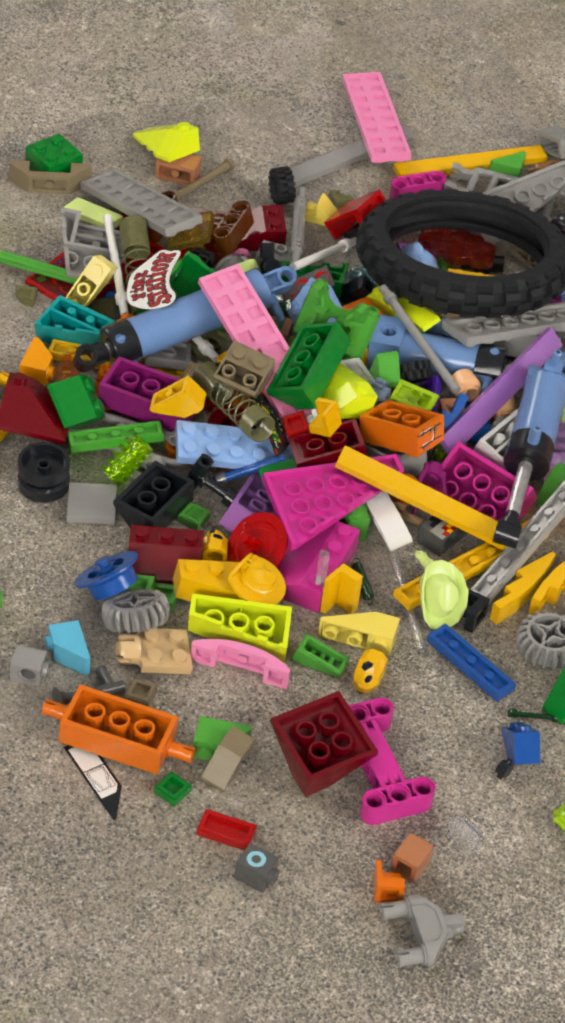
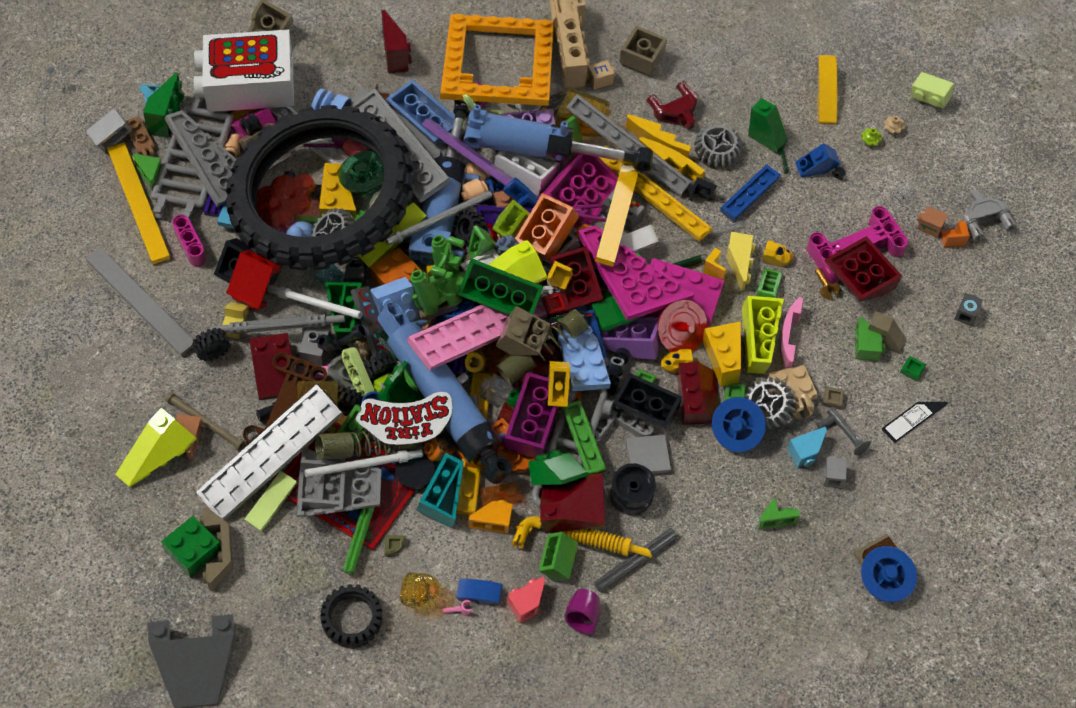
camera: 95 degrees left, 15 degrees up
(92, 280) = (392, 479): light yellow slope -> none
(118, 729) = (883, 402): orange brick -> none
(127, 460) = (611, 426): clear neon green piece -> none
(226, 829) = (937, 332): red tile -> none
(257, 580) = (726, 319): yellow hat -> none
(322, 567) = (712, 274): clear tile -> none
(338, 198) = (208, 303): olive tile -> none
(376, 117) = (83, 275): bright pink plate -> none
(441, 592) = (694, 206): yellowish green hat -> none

